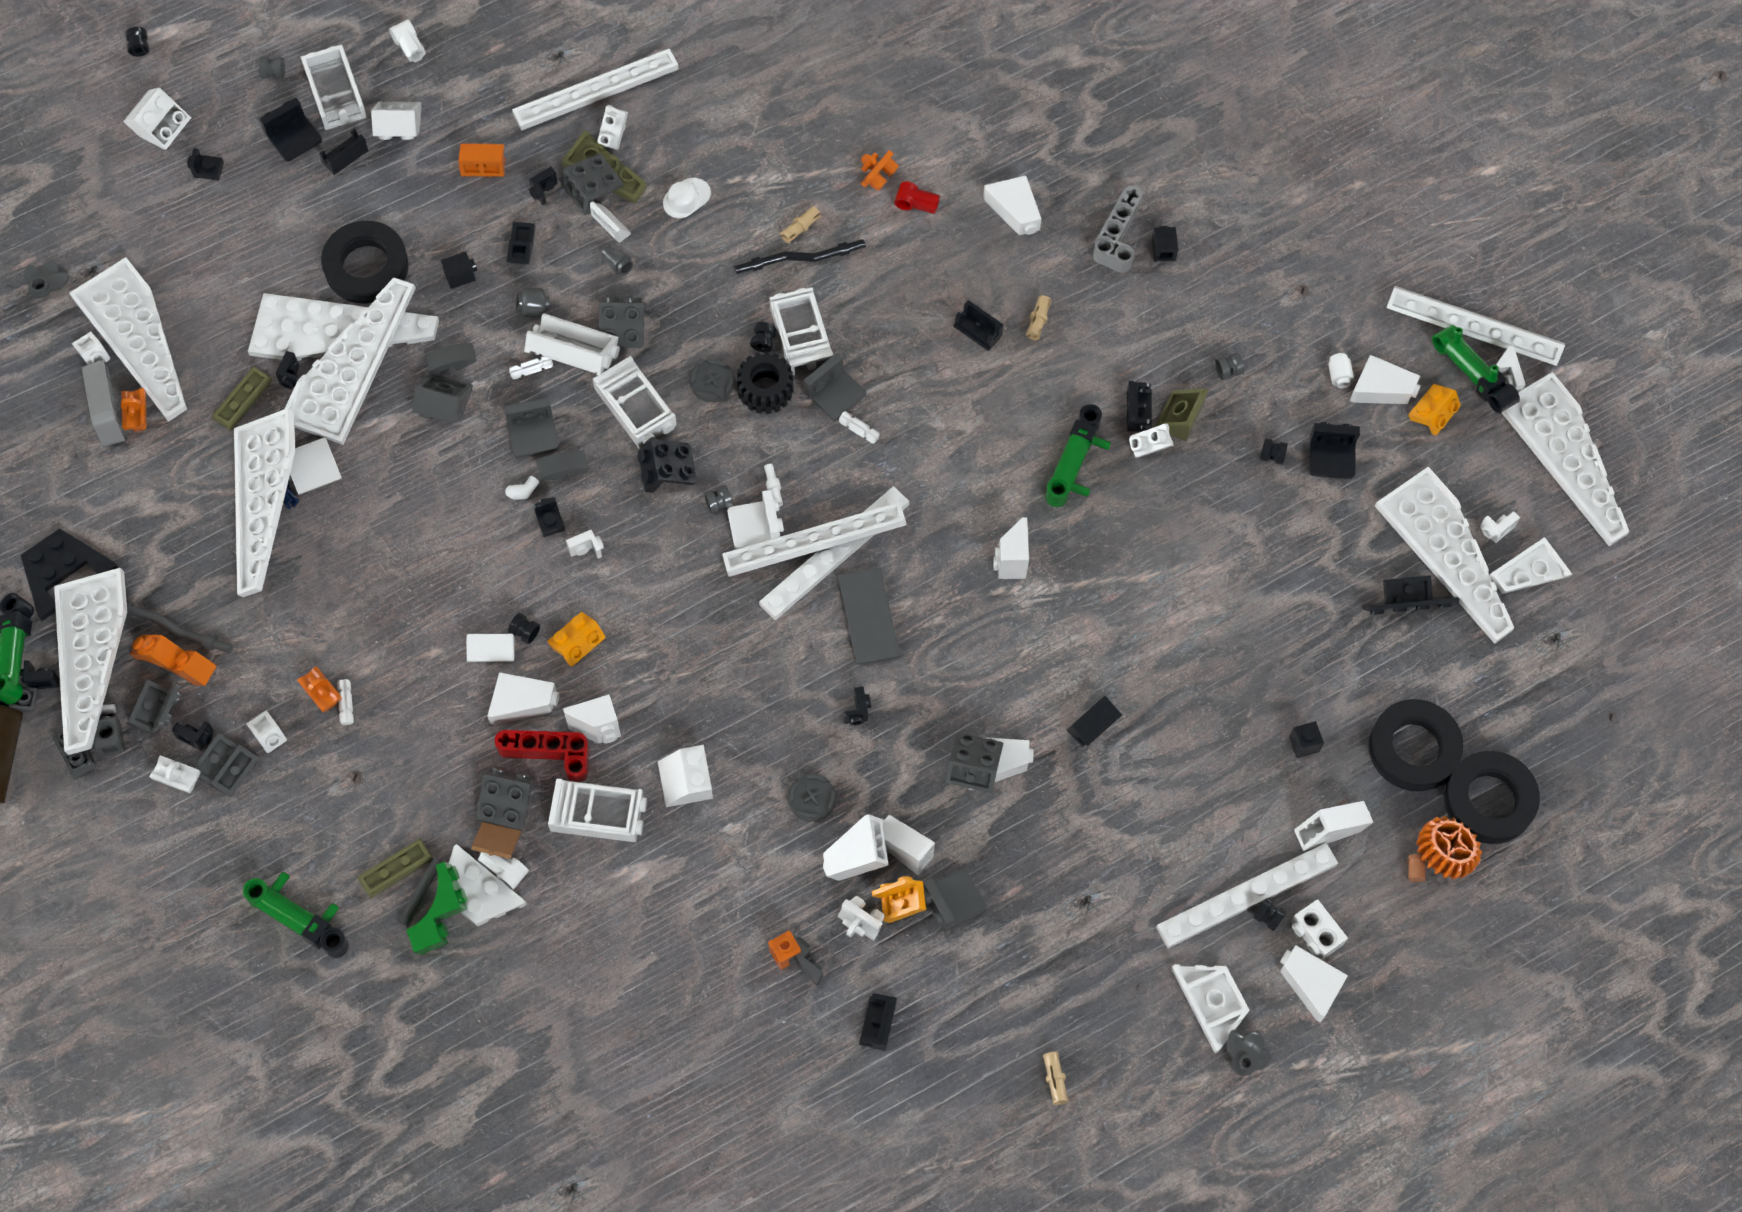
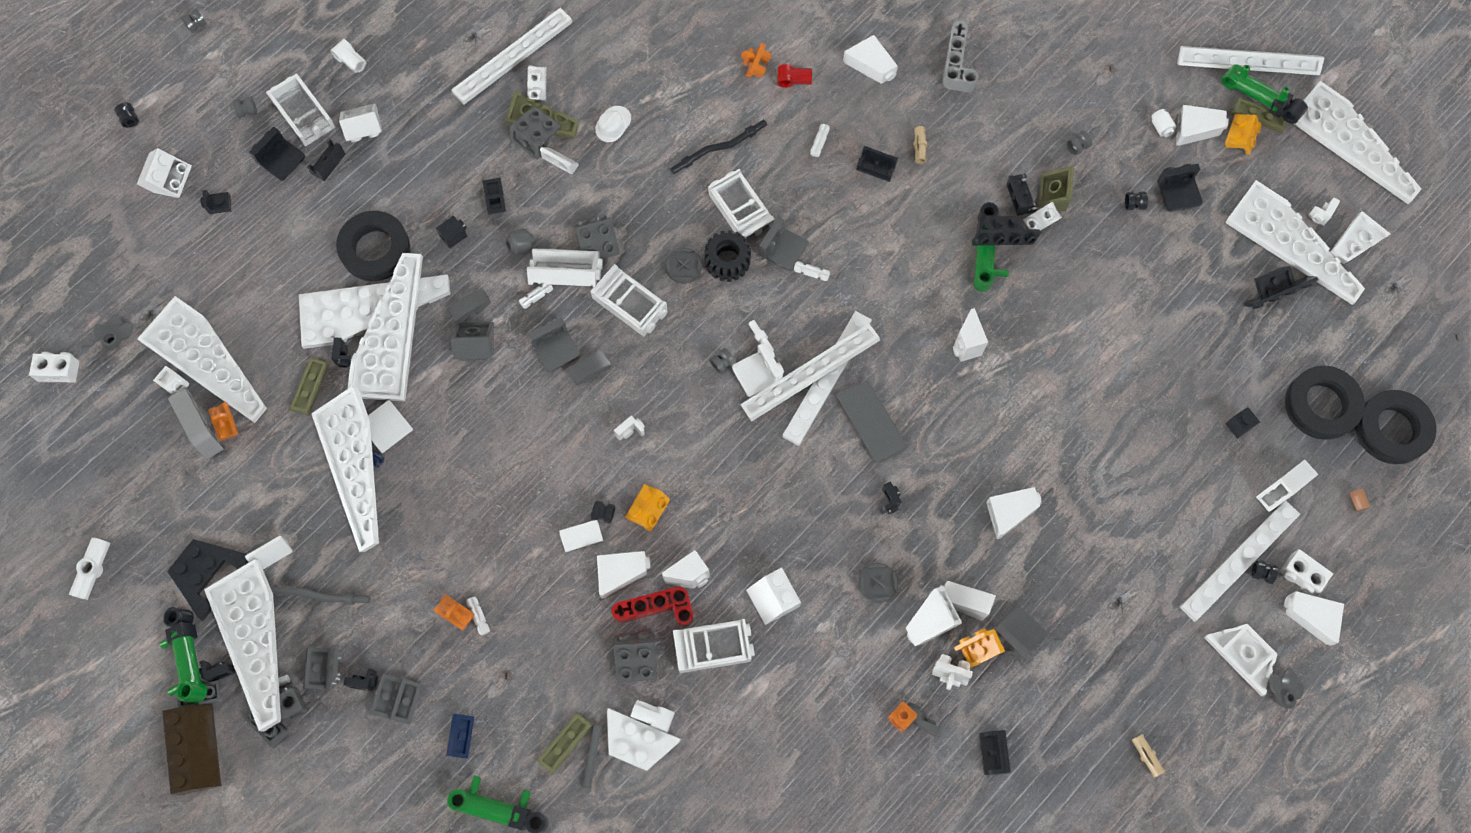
camera: 15 degrees left, 5 degrees up
(140, 566) = (270, 552): none -> white slope
(166, 654) = (324, 622): orange arch -> none
(175, 774) = (358, 720): white hips -> none
(266, 731) = (421, 660): white bracket -> none
(281, 825) = (460, 736): none -> dark blue plate
(449, 901) = (620, 759): green arch -> none
(482, 160) = (440, 137): orange hinge -> none
(496, 840) = (640, 696): medium nougat piece -> none
(522, 491) = (564, 398): white arm -> none
(542, 182) = (494, 142): black bracket -> none
(548, 516) = (591, 413): black bracket -> none
(617, 260) = (576, 189): dark grey cone -> none
(666, 462) = (671, 343): black bracket -> none
(763, 337) = (712, 218): black wheel -> none
(800, 224) = (710, 121): tan pin -> none
(921, 281) = (819, 140): none -> white axle
(974, 762) = (1001, 518): dark grey bracket -> none
(1094, 722) = (1076, 456): black hinge -> none
(1100, 443) = (1005, 231): none -> black bracket
(1164, 243) = (996, 60): black brick -> none
(1449, 847) = (1381, 477): orange gear -> none
(1466, 392) = (1264, 116): none -> olive tile
(1511, 369) = (1287, 80): white slope -> none

